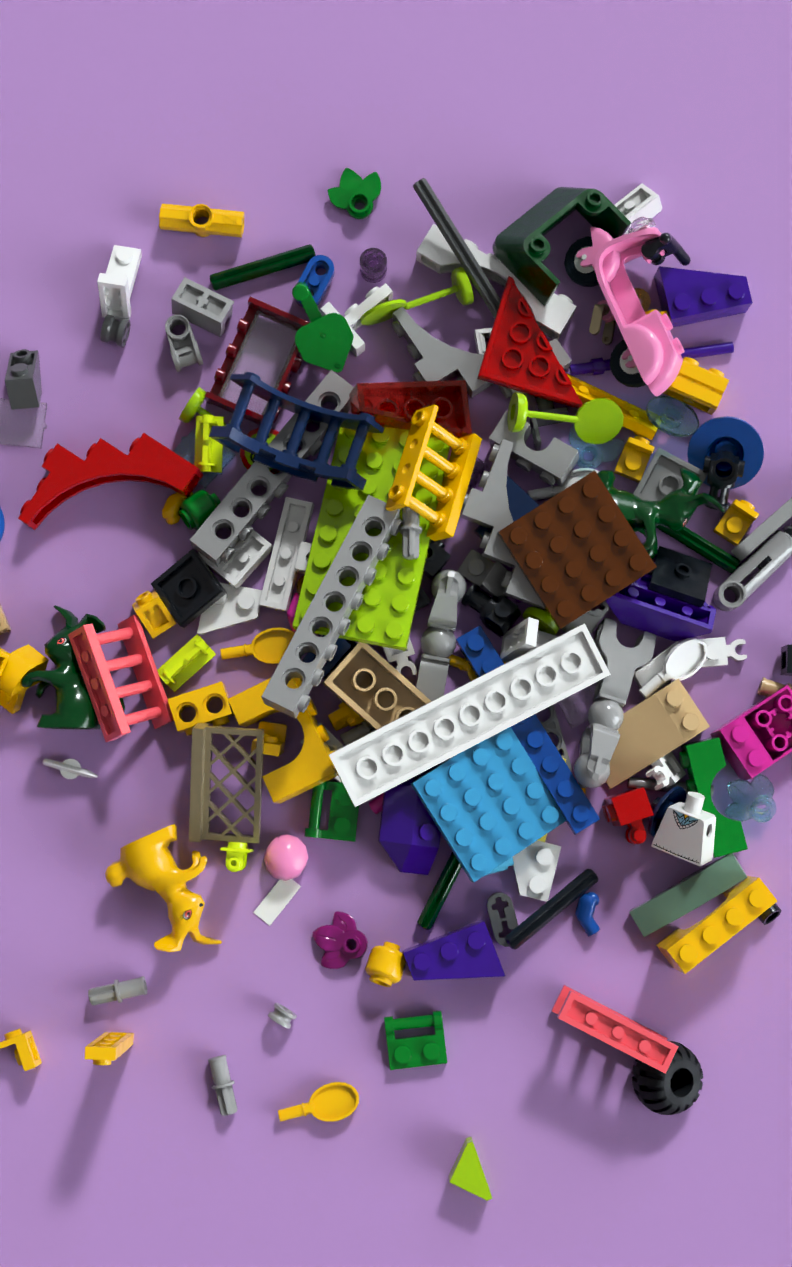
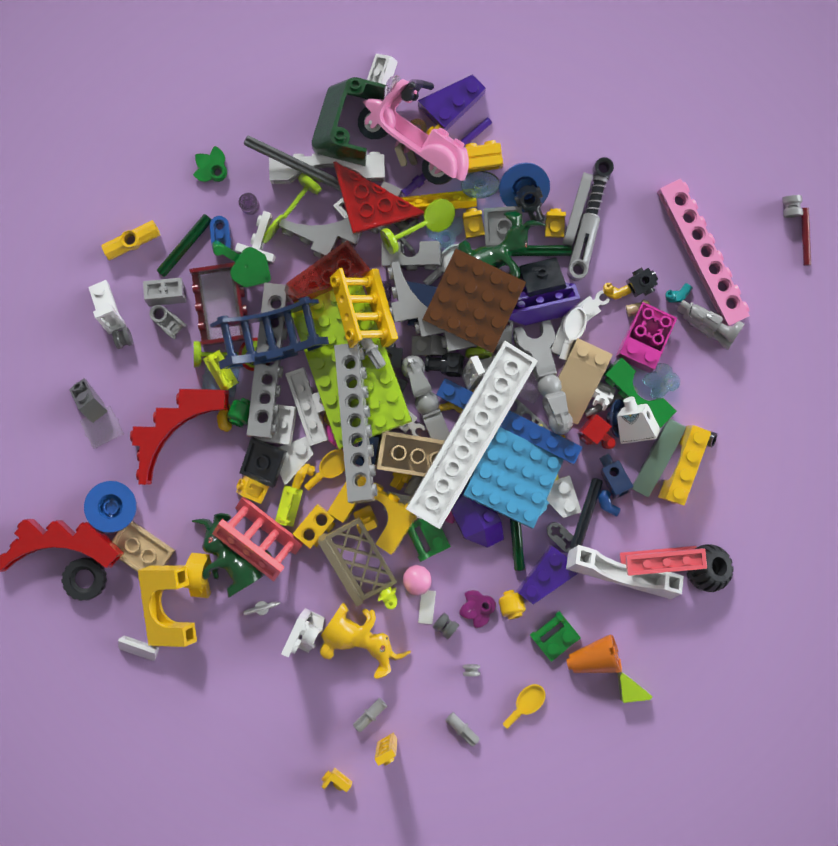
camera: 25 degrees left, 5 degrees up
(97, 830) = (307, 629): none -> white plate
(224, 633) = (300, 475): none -> yellow arm
(288, 943) = (448, 629): none -> dark grey wheel
(451, 1101) = (596, 657): none -> orange cone
(523, 978) = (594, 564): none -> white arch
(617, 896) = (619, 484): none -> dark blue torso
(758, 652) = (615, 293): none -> yellow arm

